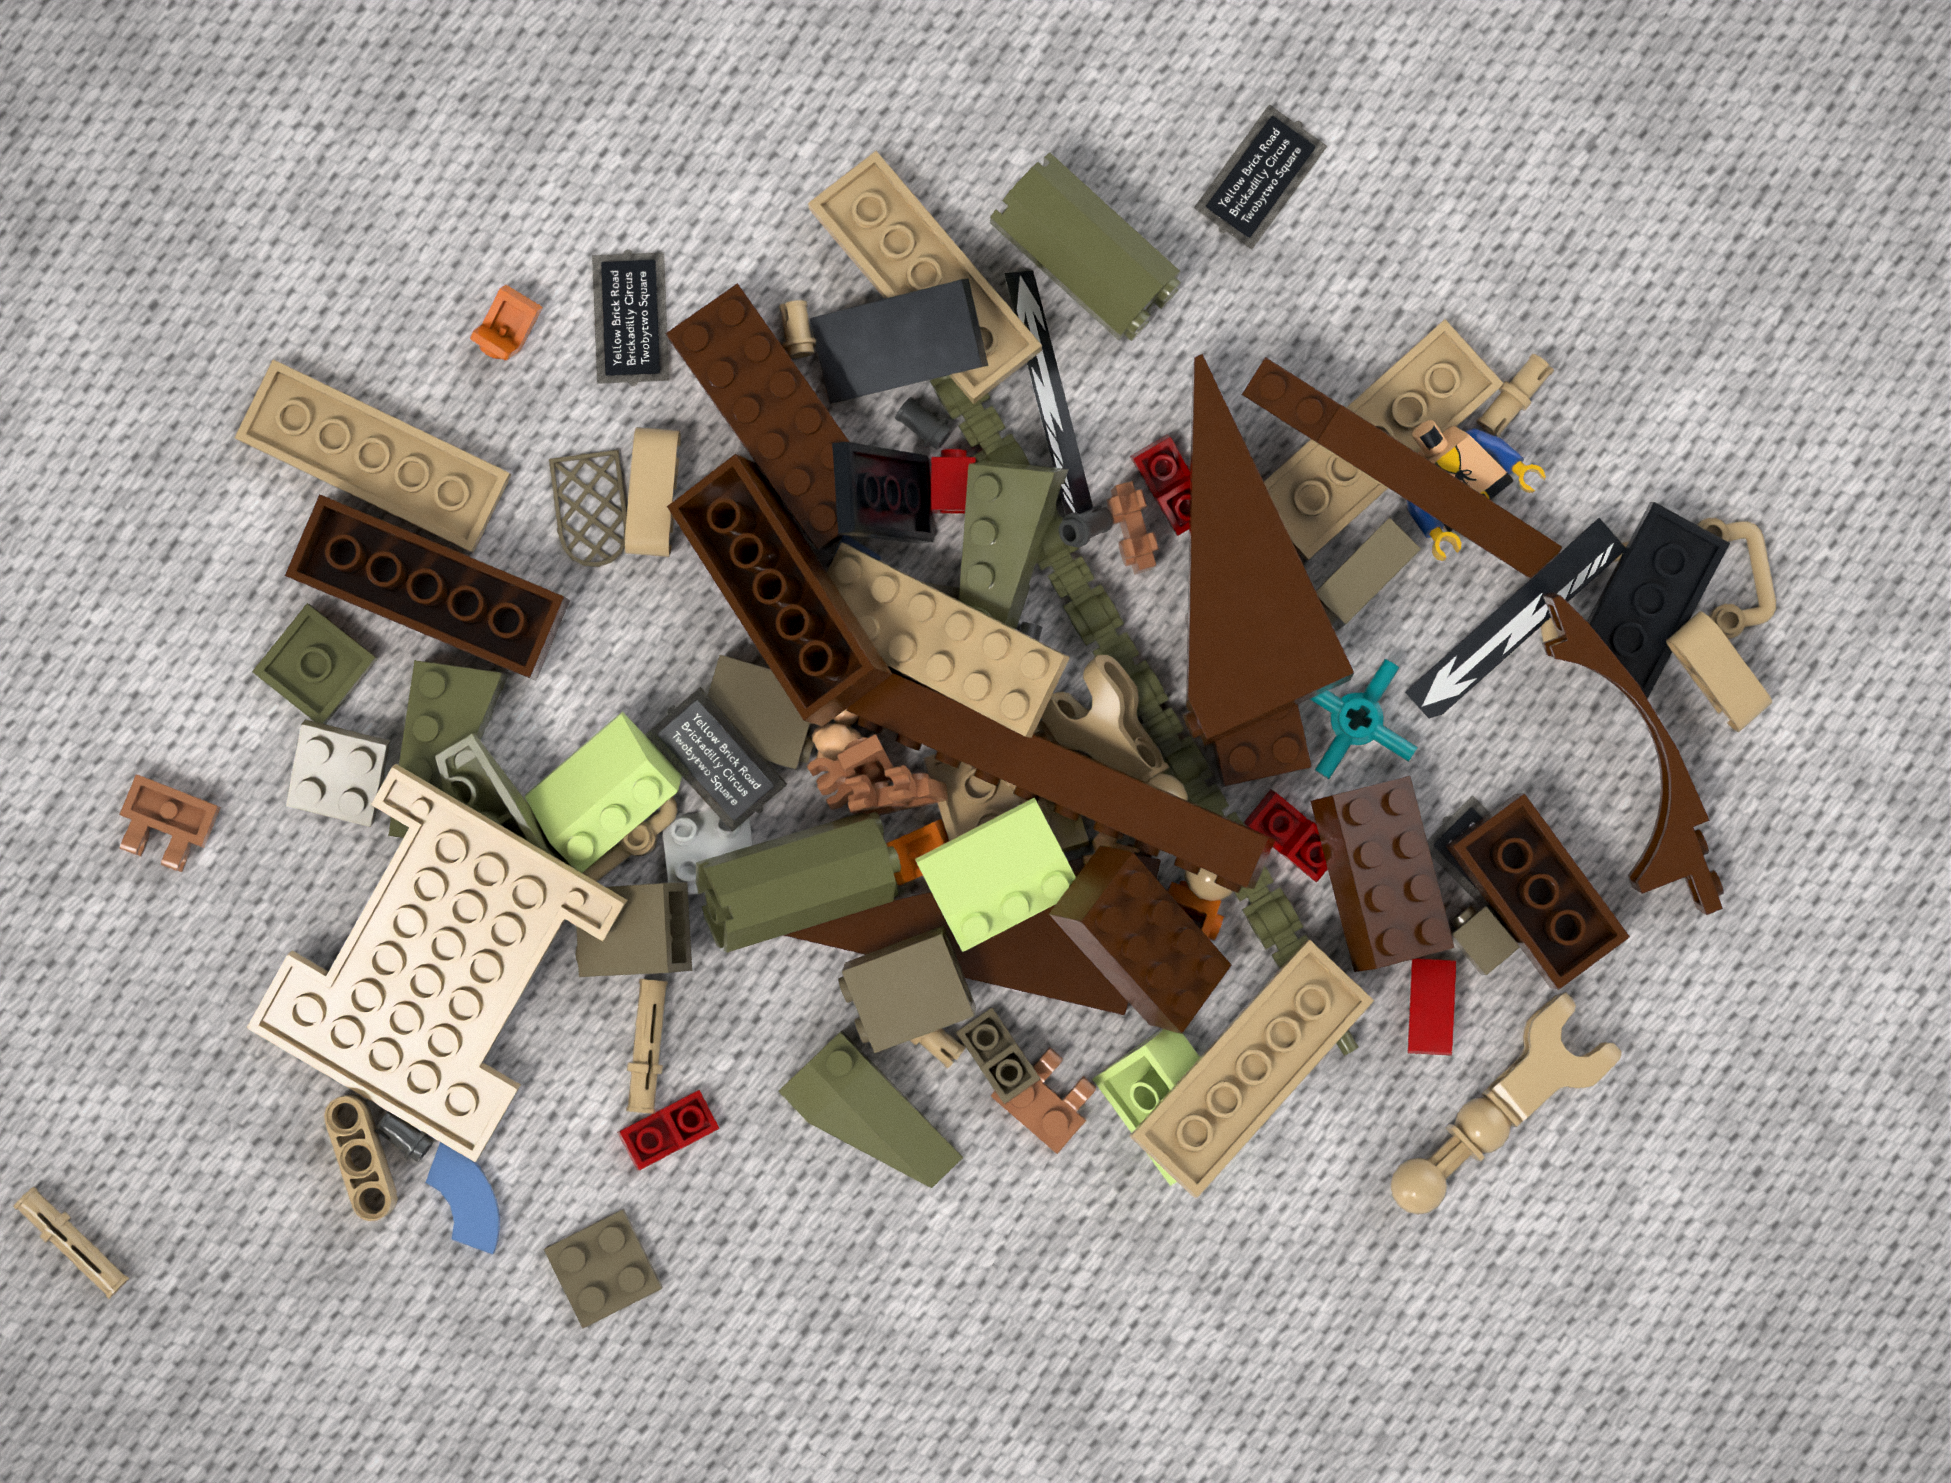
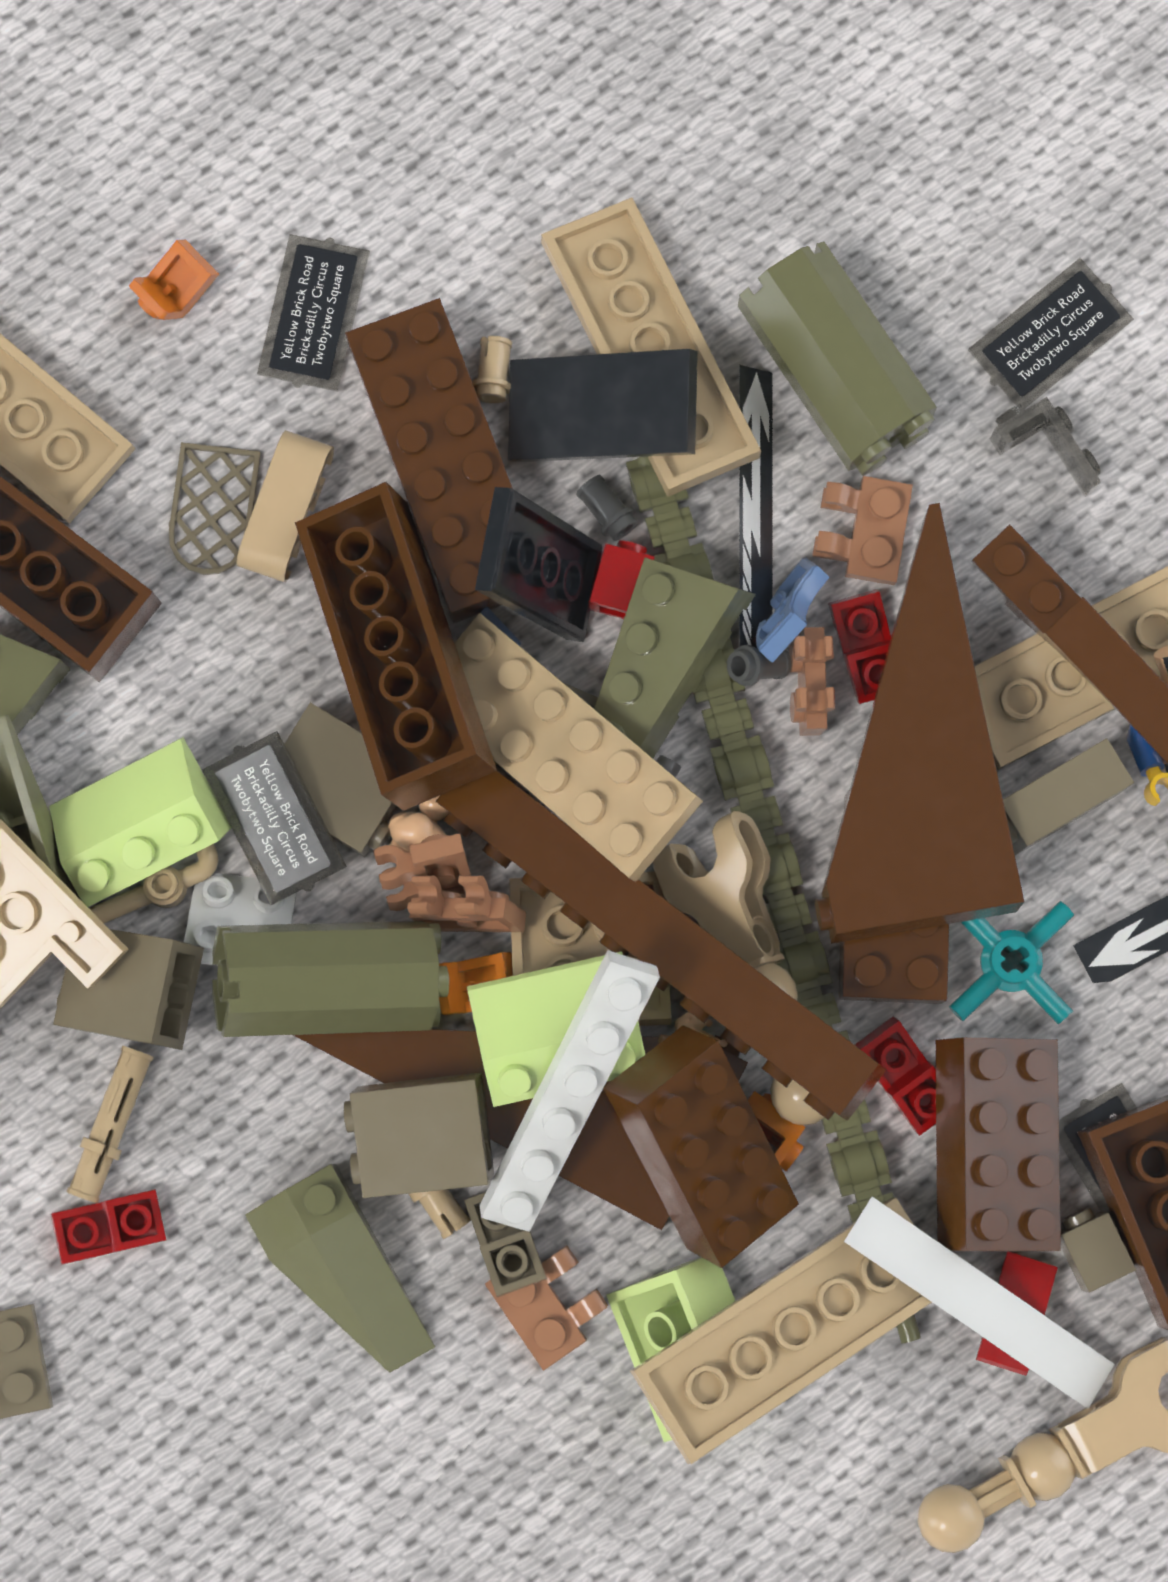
camera: 15 degrees right, 5 degrees down
(1021, 923) = (569, 1090): none -> white plate
(1100, 469) = (791, 607): none -> medium blue tile
(1155, 382) = (877, 530): none -> nougat plate
(1254, 263) = (1020, 424): none -> clear smoke bracket
(1398, 1006) = (979, 1302): none -> white sticker

